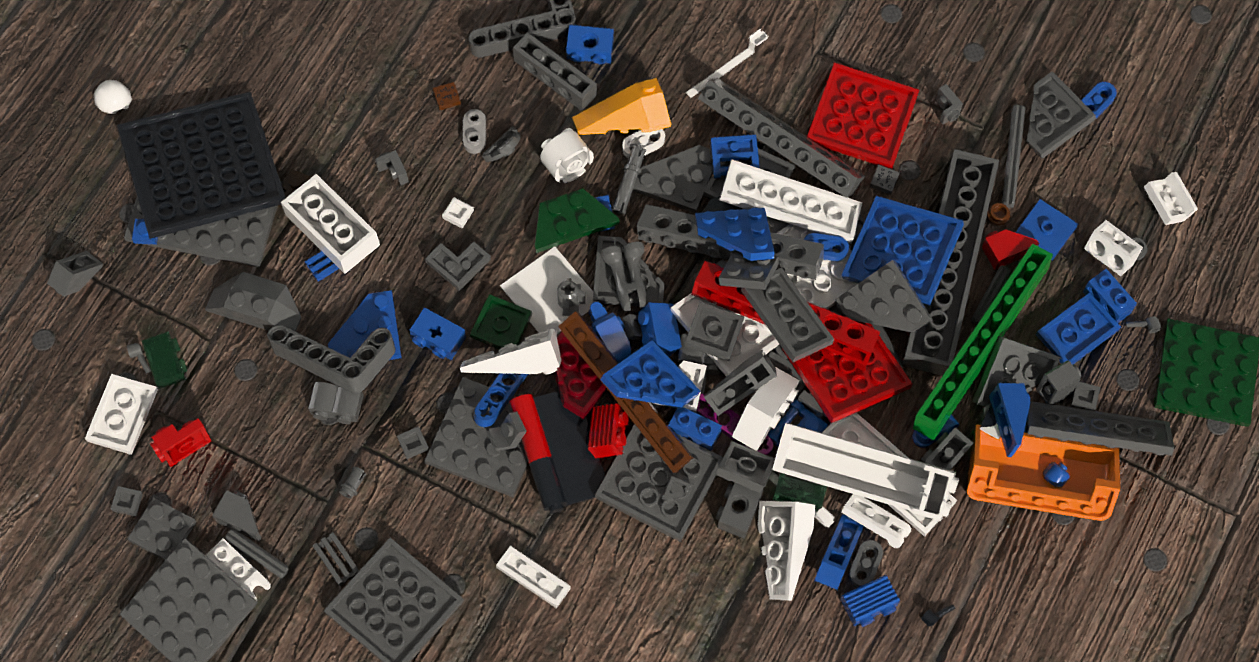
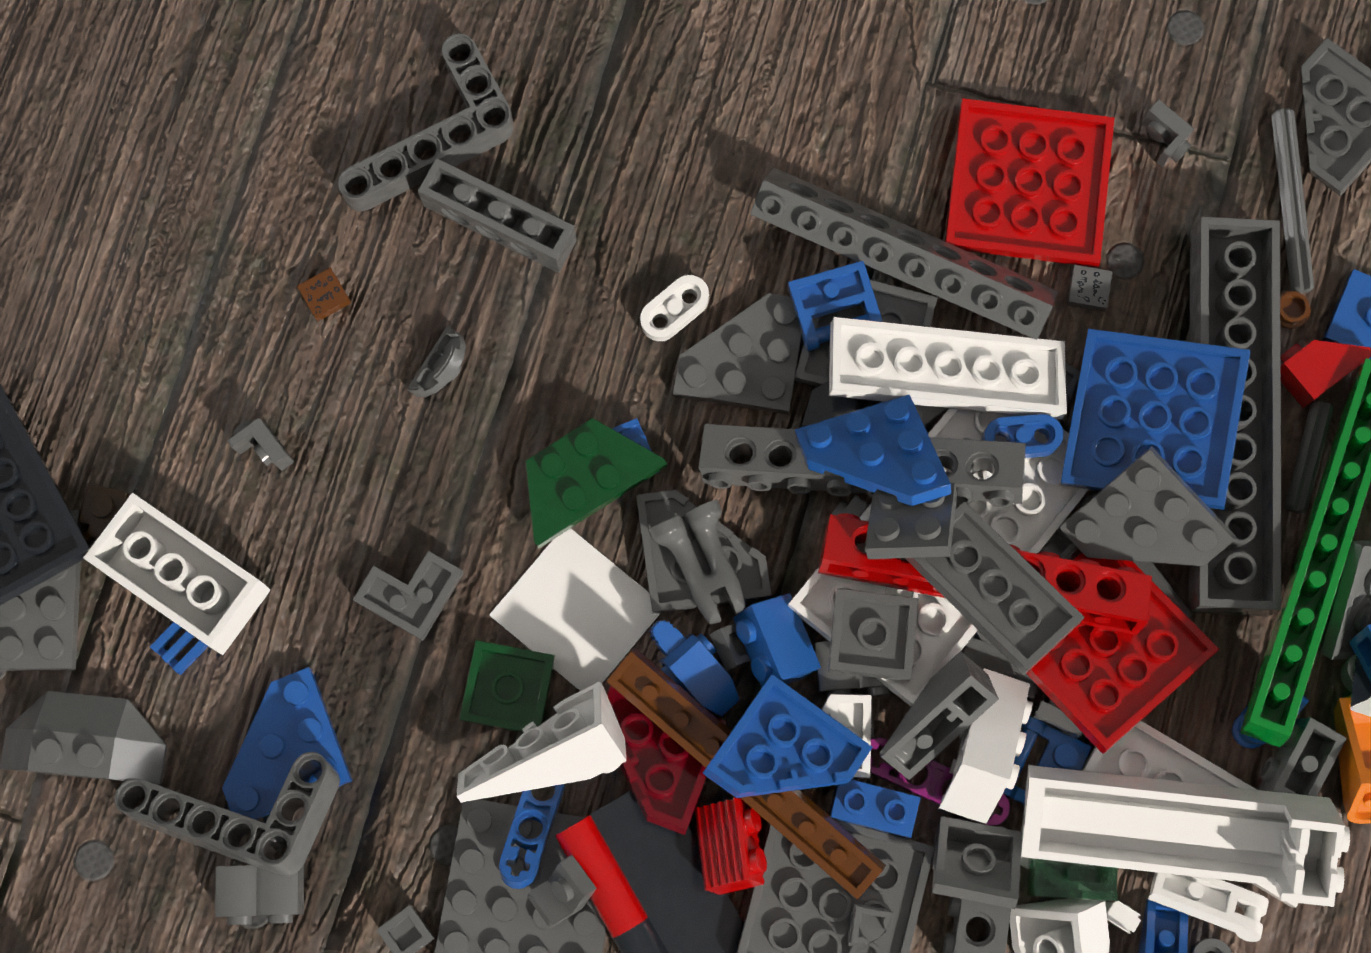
camera: 10 degrees left, 10 degrees up
(431, 324) = (385, 715): blue brick -> none
(457, 212) = (389, 500): white tile -> none
(474, 129) = (385, 346): light grey plate -> none
(566, 156) = (550, 364): white brick -> none
(570, 296) = (612, 615): dark grey piece -> none
(600, 38) = (527, 140): blue brick -> none
(632, 170) = (665, 382): dark grey pin -> none
(635, 107) = (641, 256): light orange wedge -> none
(755, 39) = (823, 86): white piece -> none

